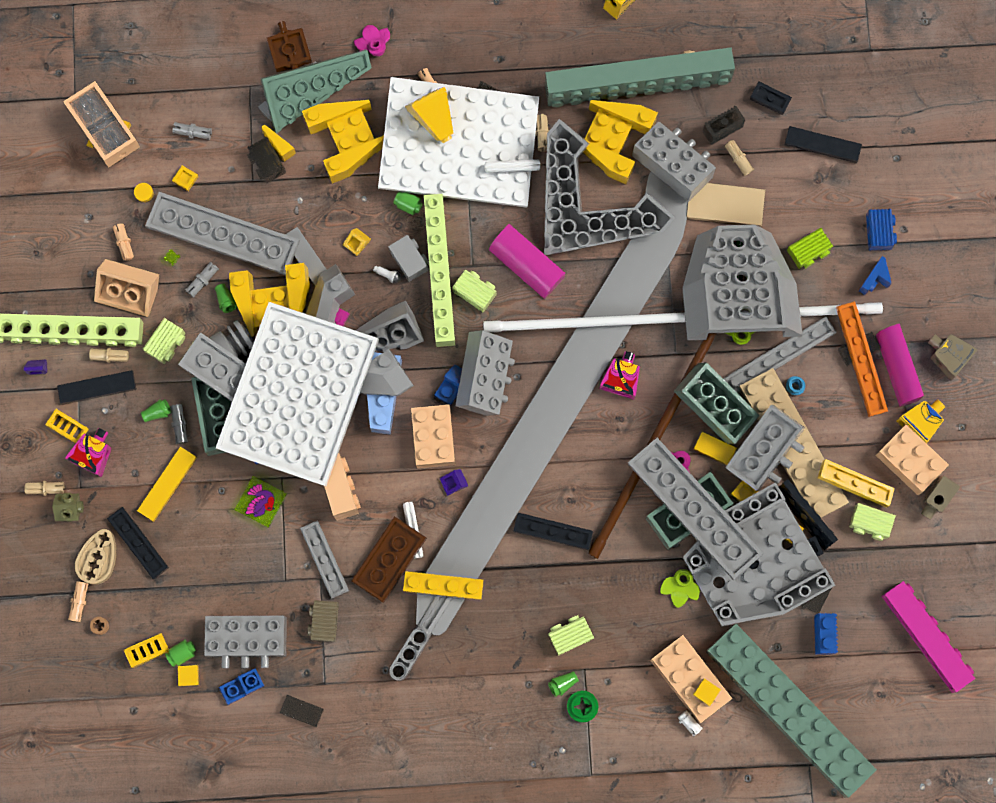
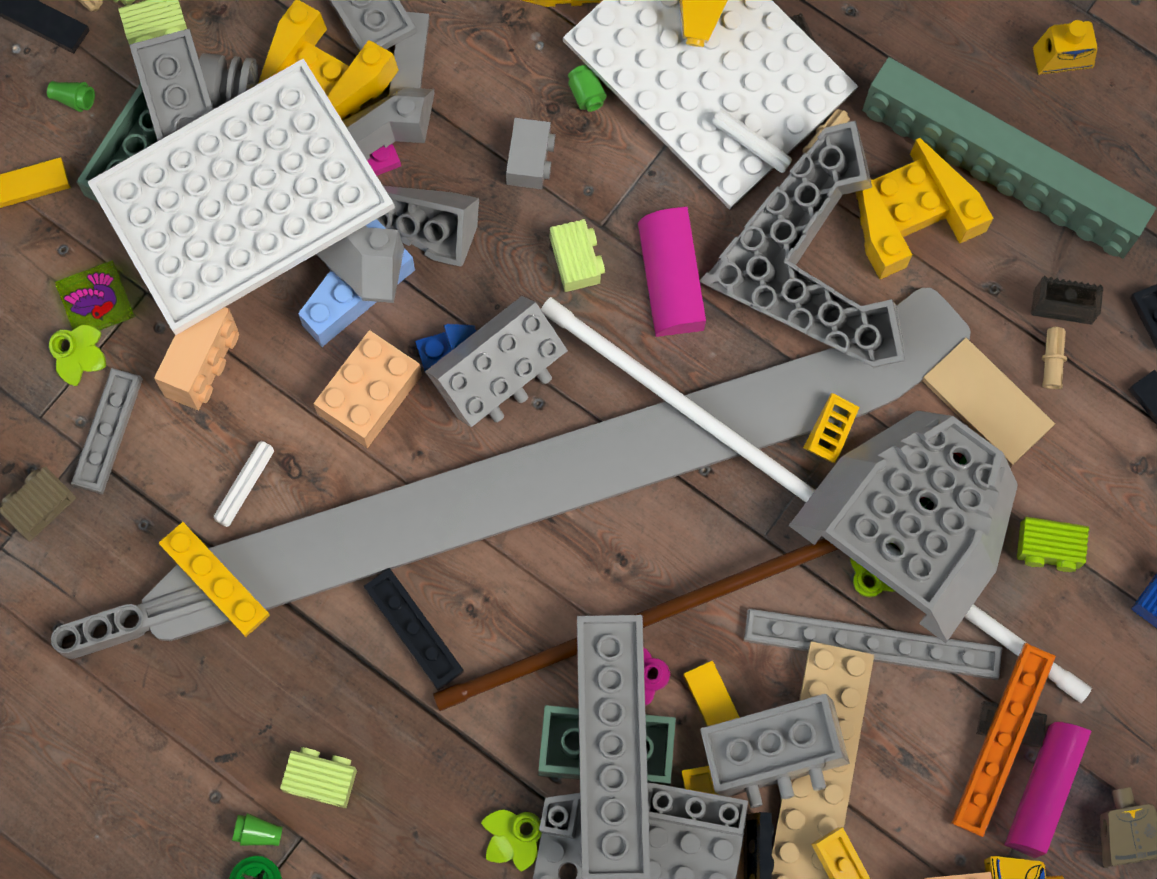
camera: 35 degrees right, 5 degrees down
(179, 424) = (83, 130): dark grey pin -> none
(225, 299) = (266, 28): bright green cone -> none
(279, 534) = (81, 354): none -> lime plate
(356, 241) = (485, 86): yellow slope -> none
(389, 559) = (181, 493): reddish brown tile -> none
(393, 276) = (491, 160): white piece -> none
(439, 270) = (552, 197): yellowish green brick -> none
(453, 482) = (346, 466): dark purple slope -> none
(622, 377) = (668, 508): torso -> none
(661, 285) = (816, 434): none -> yellow slope
(674, 160) = (965, 294): light grey piece -> none
(716, 403) = (759, 637): sand green brick -> none
(795, 379) = (893, 696): dark azure plate -> none
(880, 274) = (1118, 647): blue slope -> none

